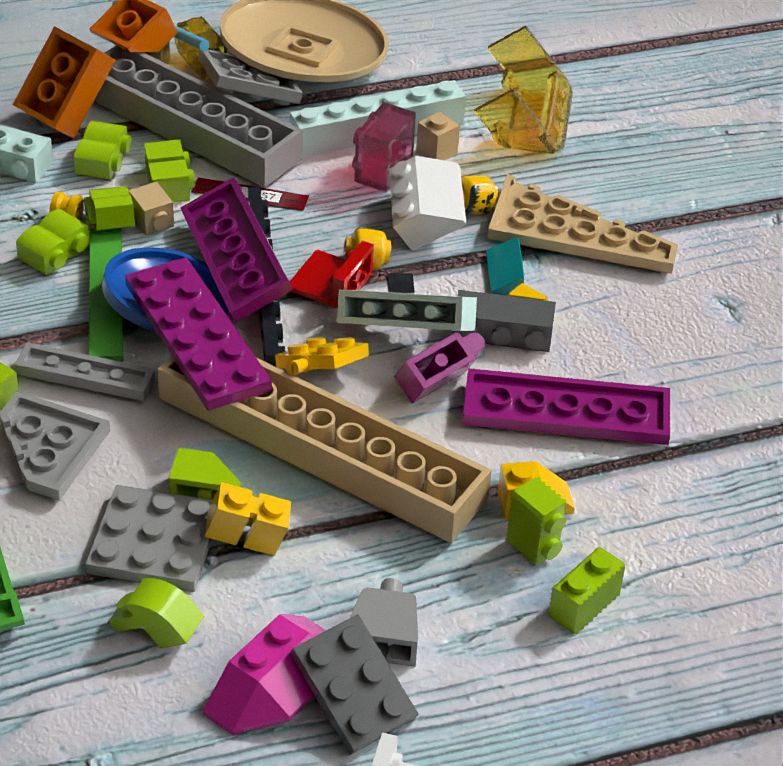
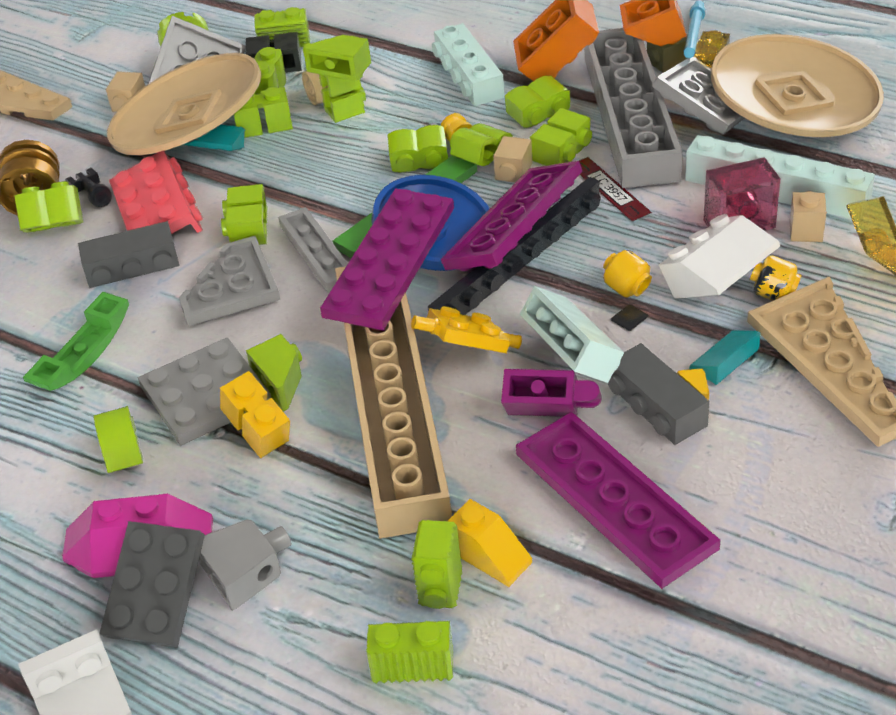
camera: 55 degrees right, 0 degrees up
(327, 274) = (577, 278): red bracket -> none

